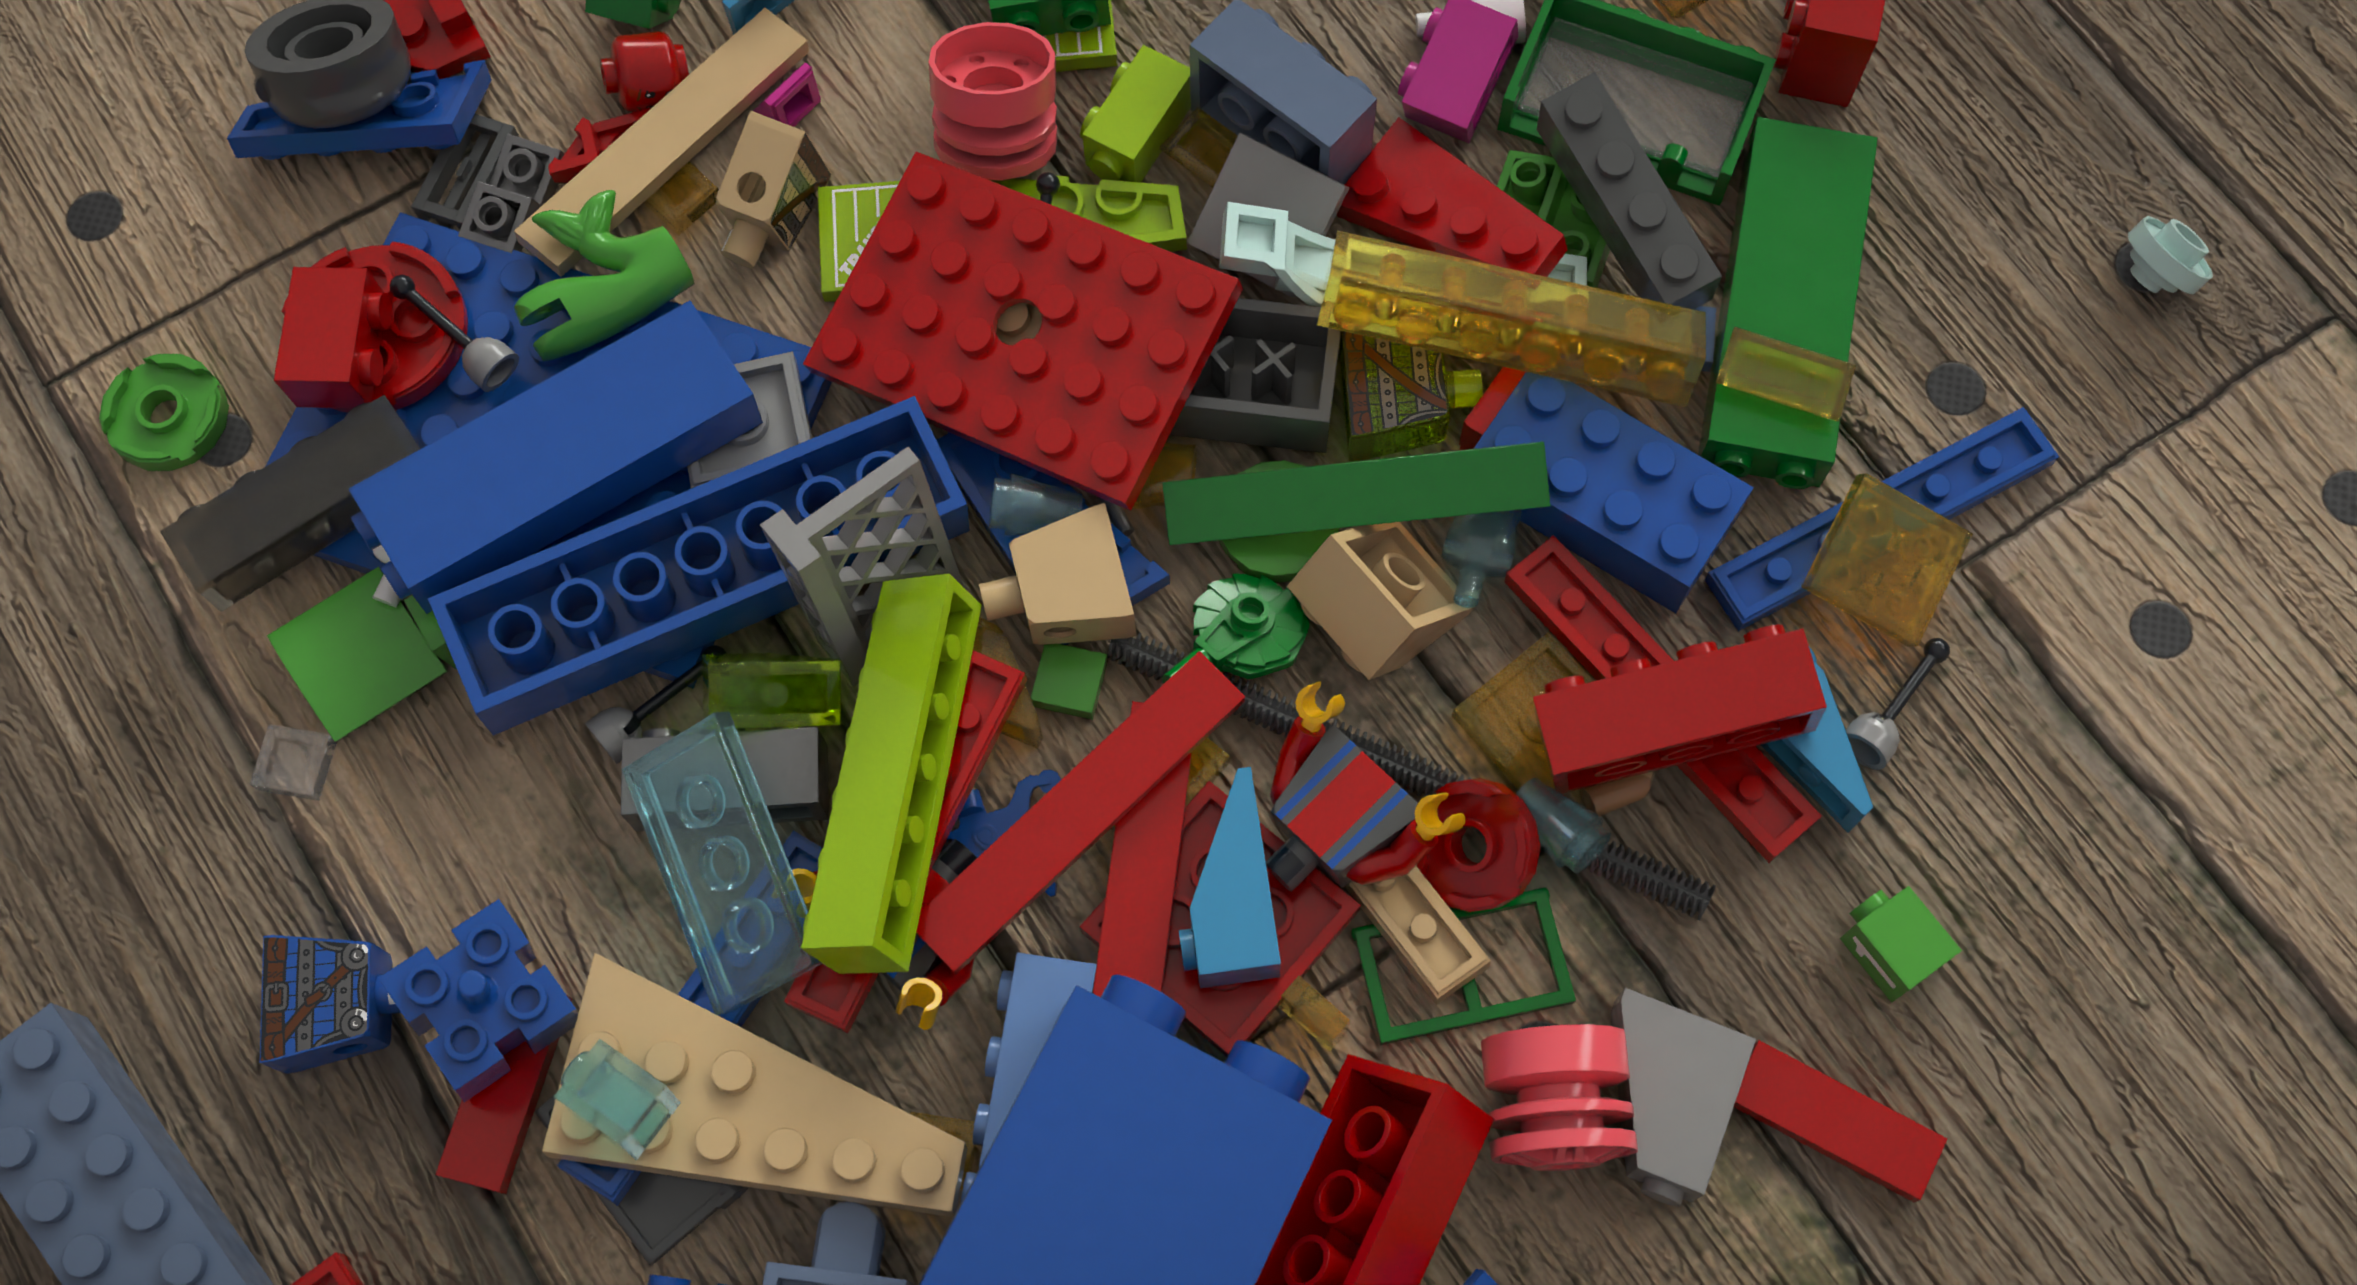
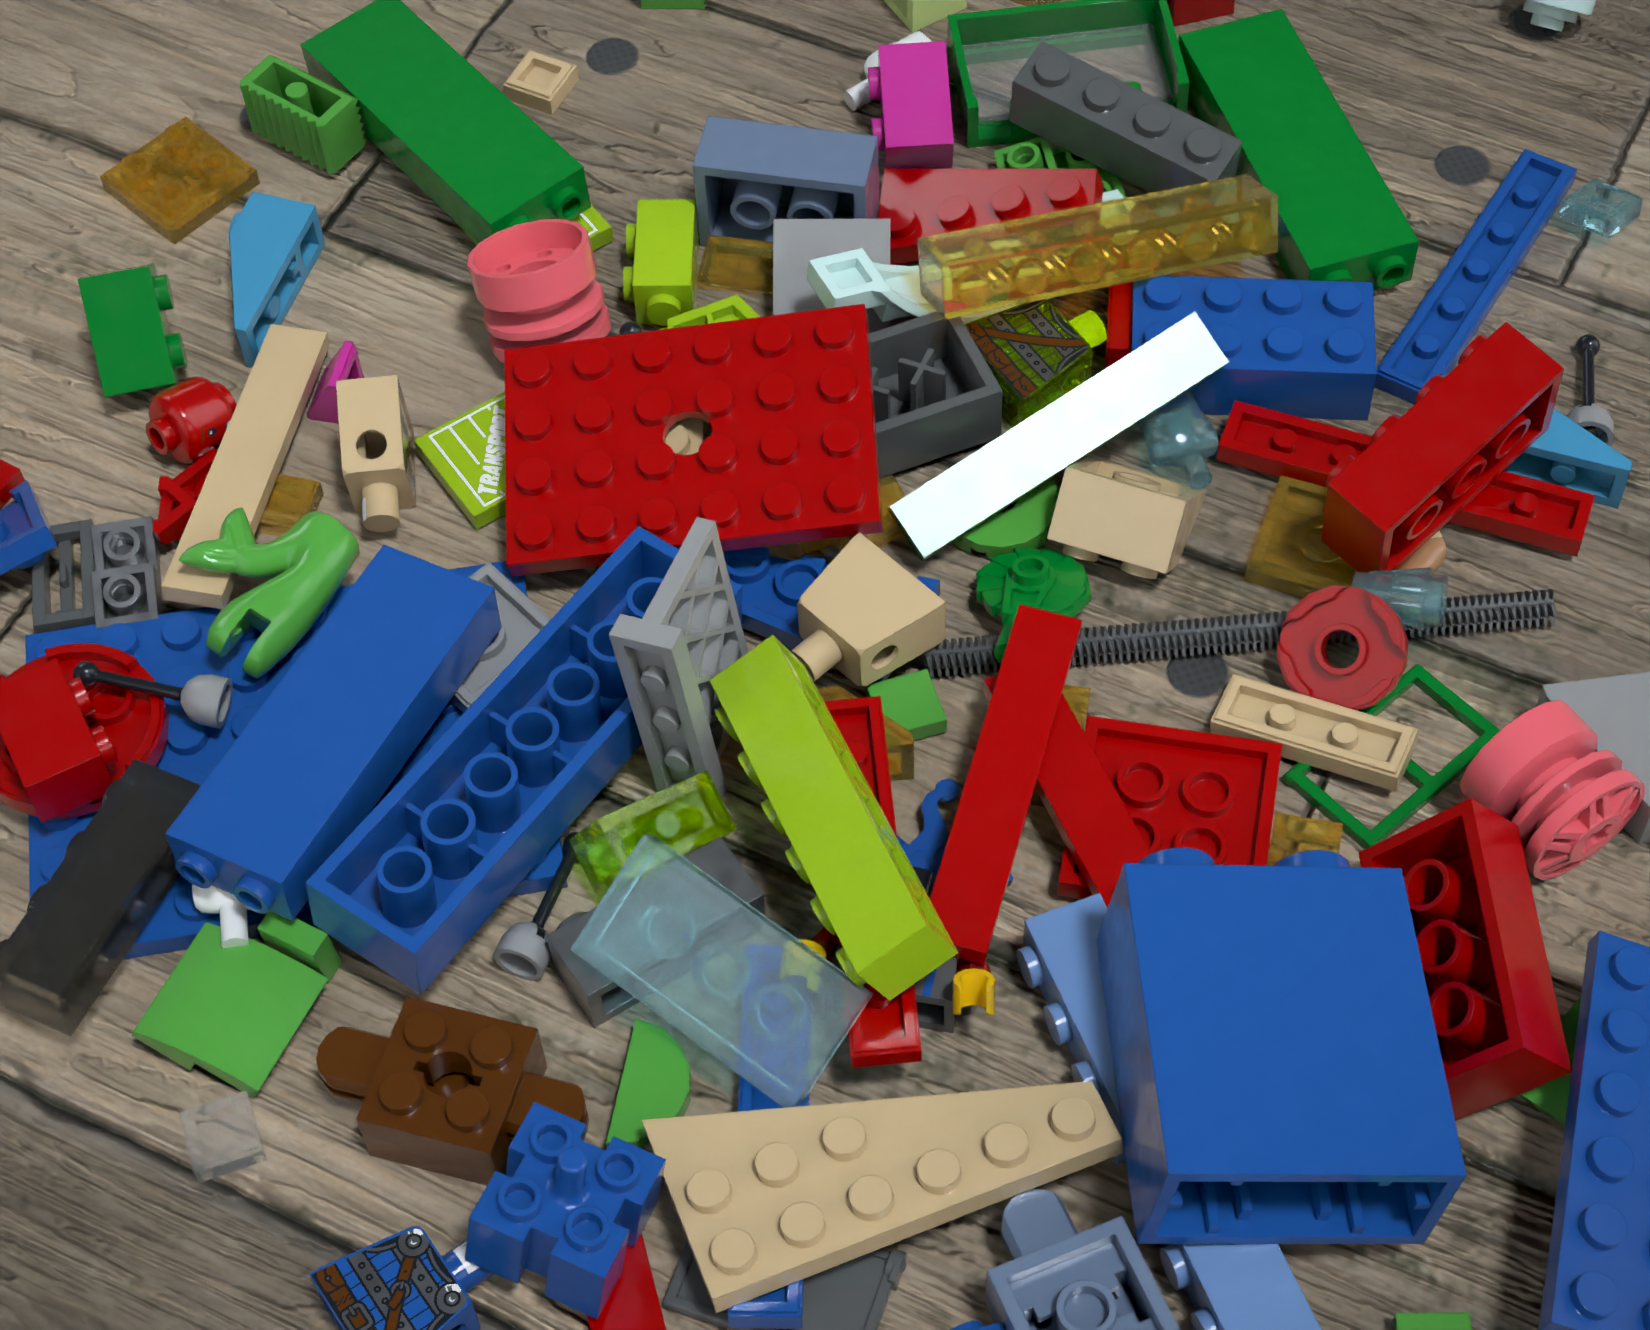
camera: 30 degrees left, 15 degrees down
(474, 831) = (425, 1112): none -> reddish brown brick
(616, 1098) = (763, 1198): clear light blue brick -> none
(635, 923) = (652, 1083): none -> bright green tile
(1026, 504) = (780, 578): clear light blue cone -> none
(1232, 906) = (1183, 782): dark azure slope -> none
(1344, 807) = (1224, 668): torso -> none
(1786, 374) = (1339, 194): clear yellow tile -> none
(1887, 560) = (1511, 282): clear yellow tile -> none
(2051, 511) = (1600, 208): none -> clear light blue tile

